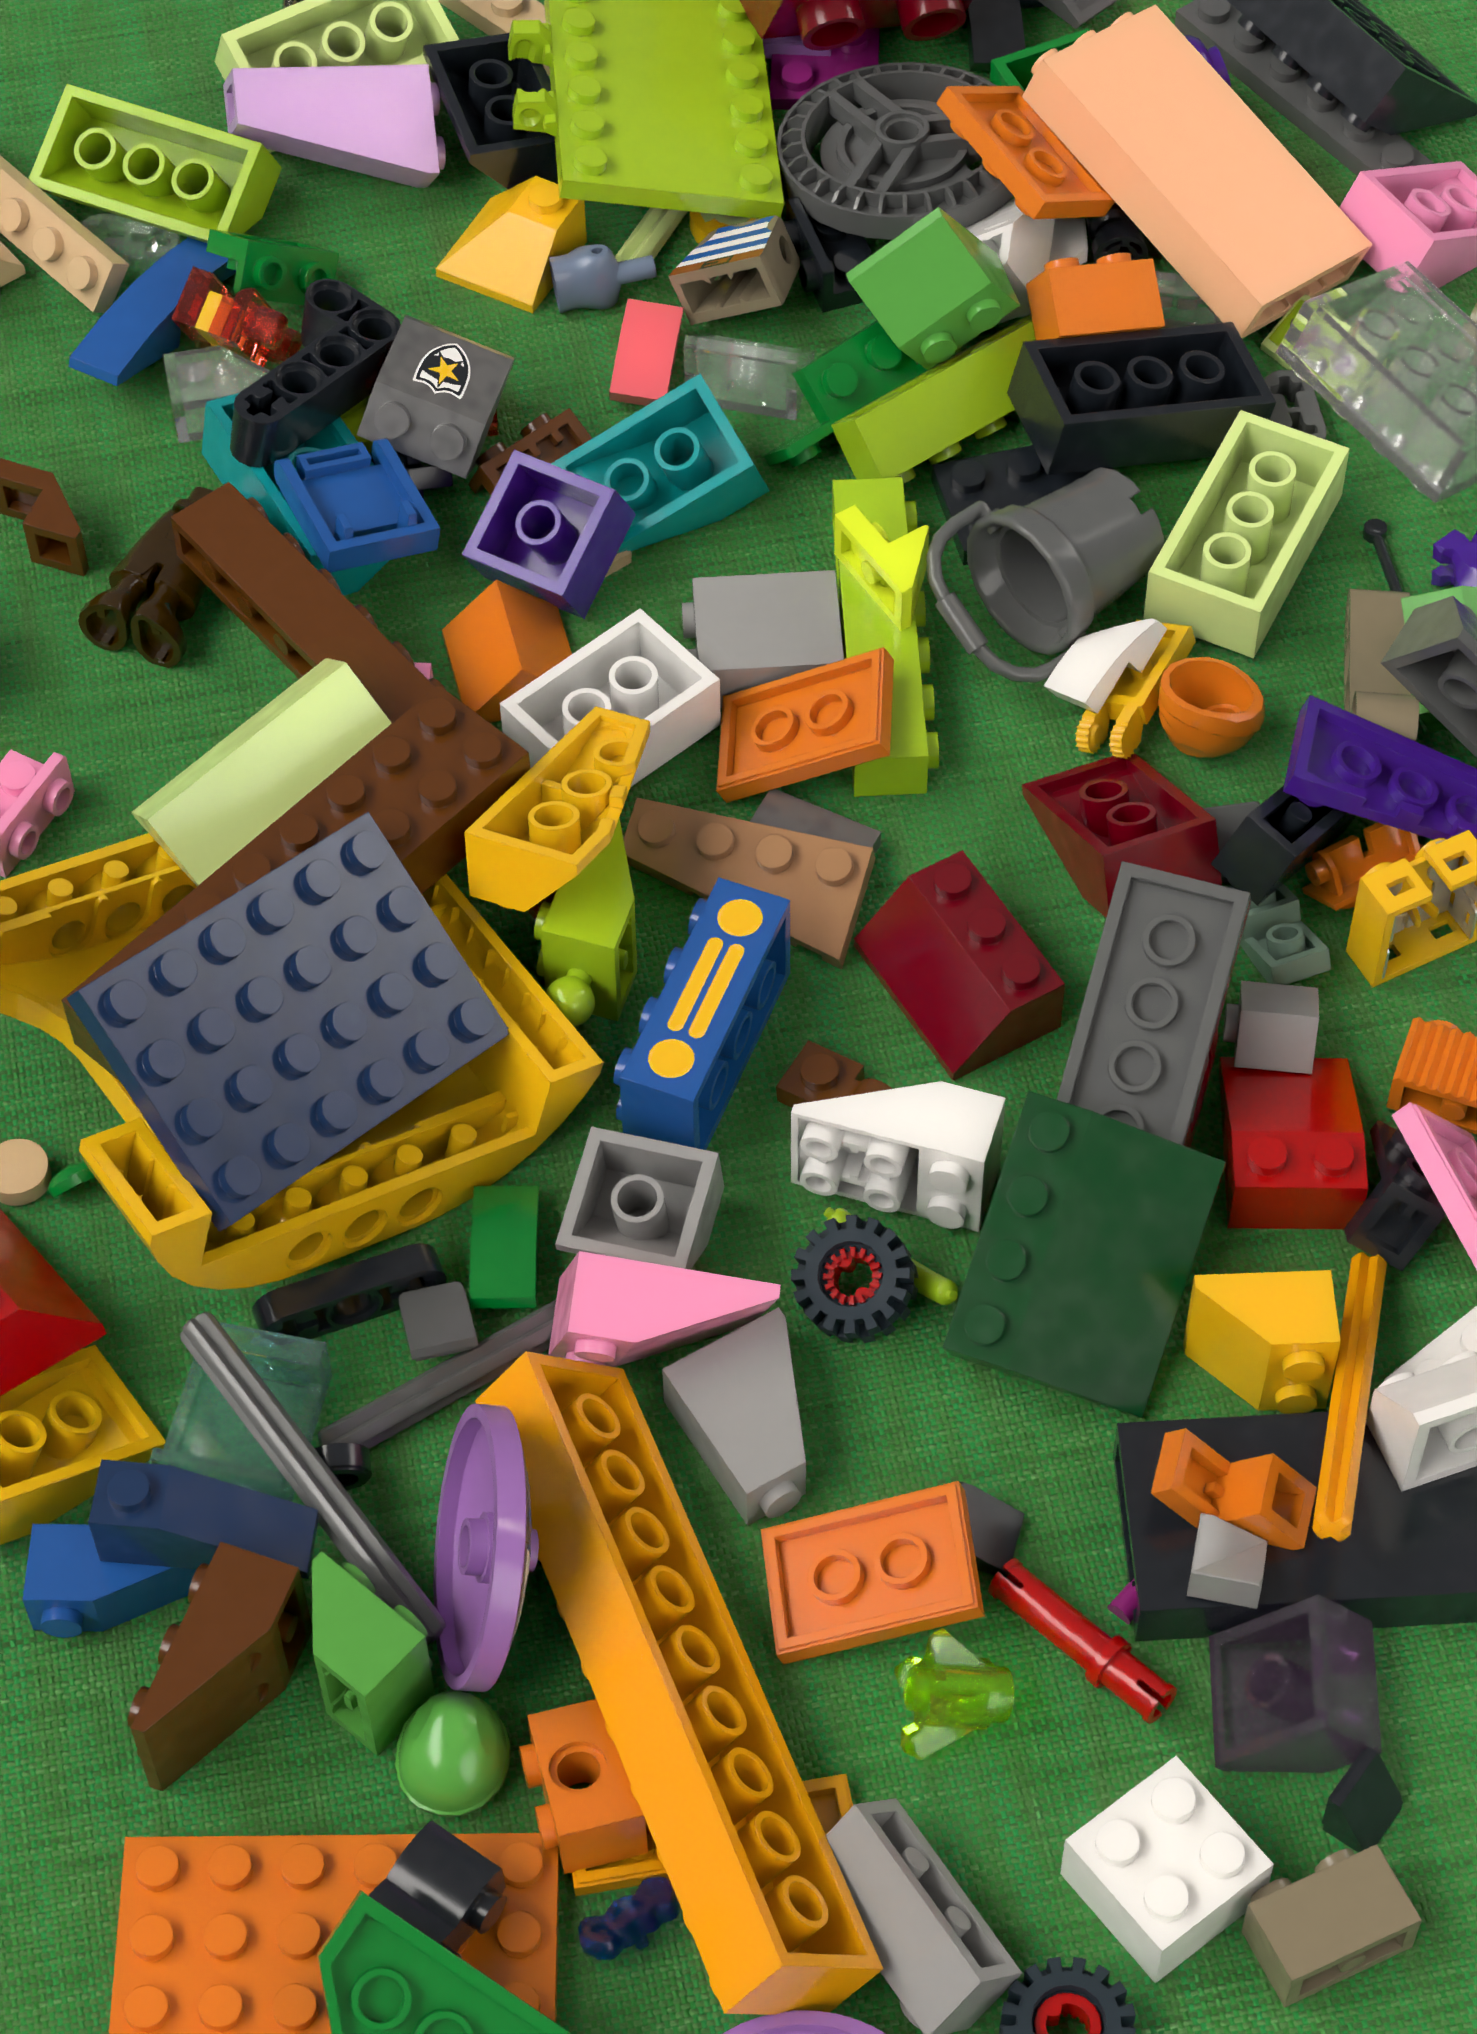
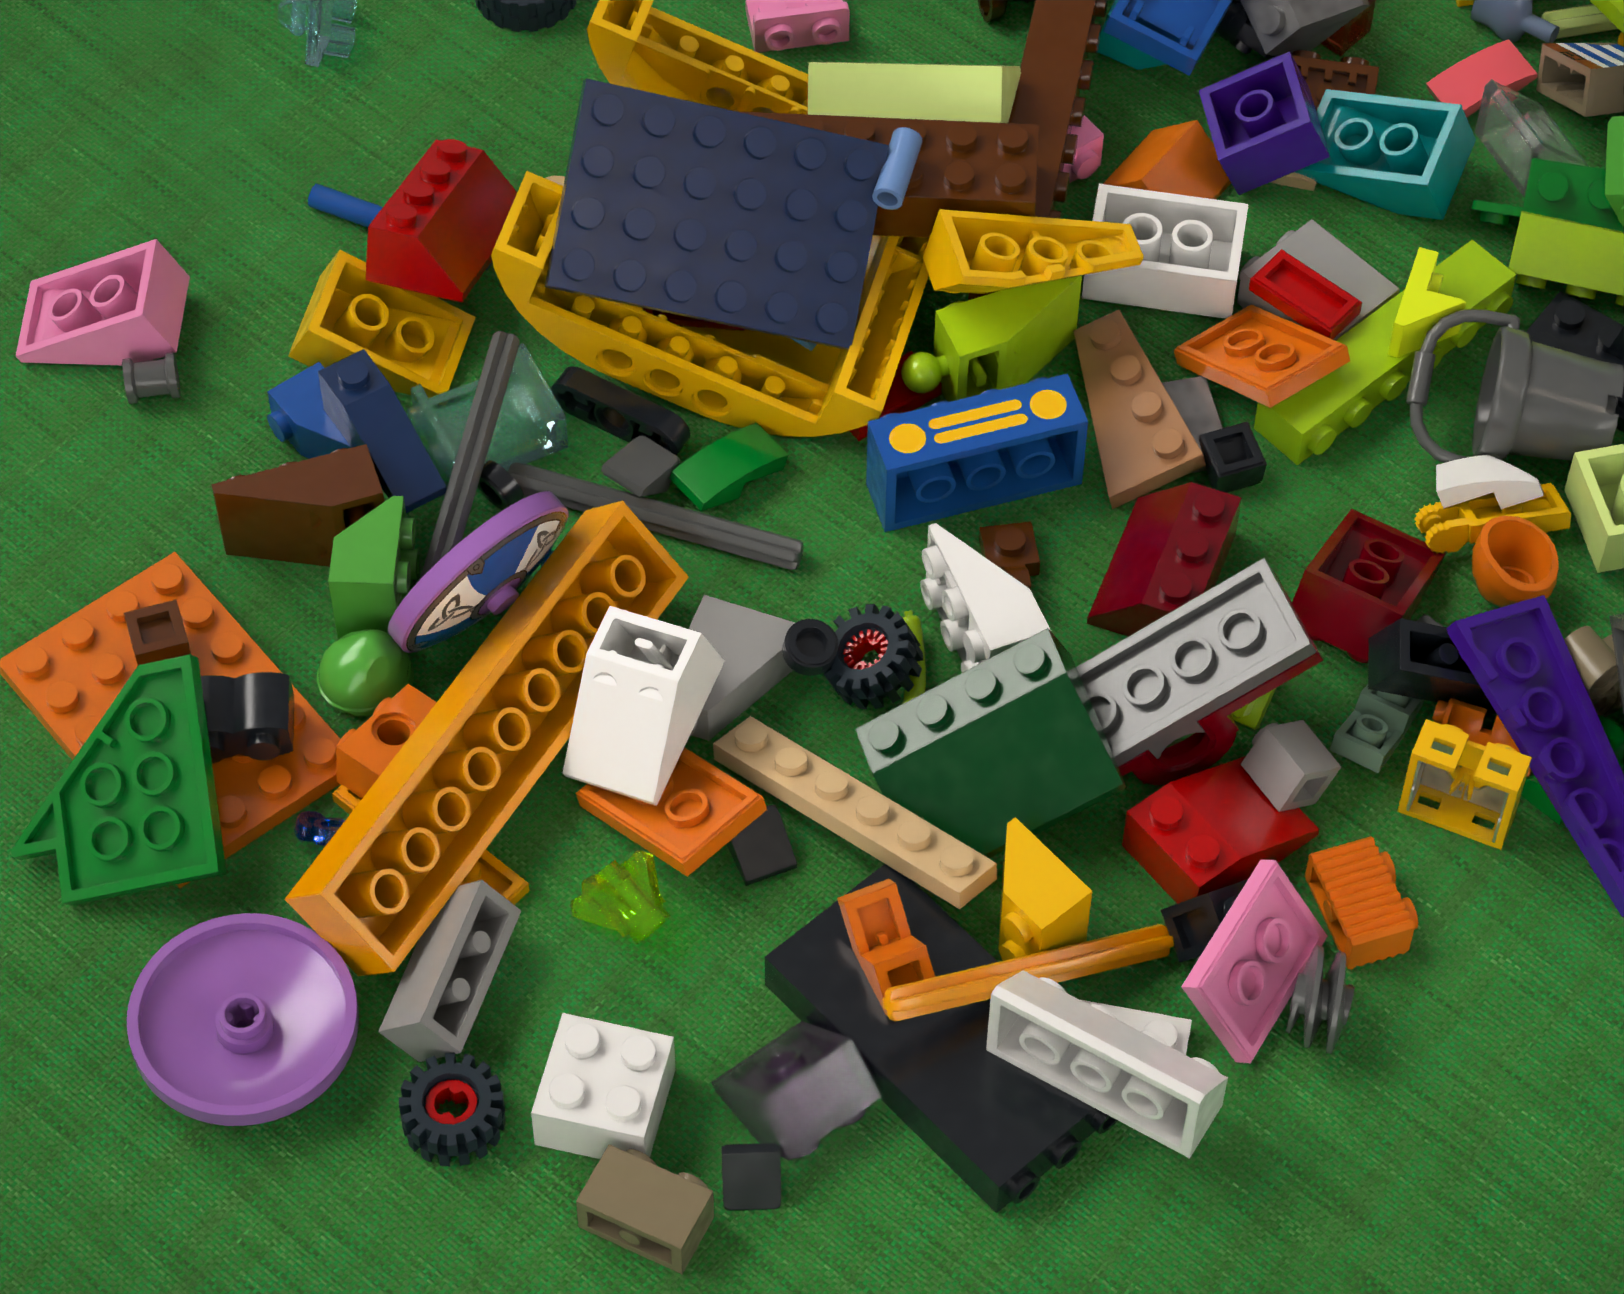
camera: 50 degrees right, 0 degrees up
(240, 1921) = (157, 632): none -> reddish brown plate
(403, 840) = (898, 168): none -> medium blue hinge
(633, 1309) = (714, 541): bright pink slope -> none
(642, 1200) = (812, 509): light grey slope -> none
(763, 1517) = (638, 703): none -> white slope
(780, 642) = (1305, 295): none -> red tile
(813, 1319) = (810, 647): none -> black tile
(890, 829) = (1232, 458): none -> black slope
(1029, 1416) = (856, 812): none -> tan plate
(1104, 1658) = (728, 968): red pin -> none
(1227, 1563) = (834, 976): light grey slope -> none

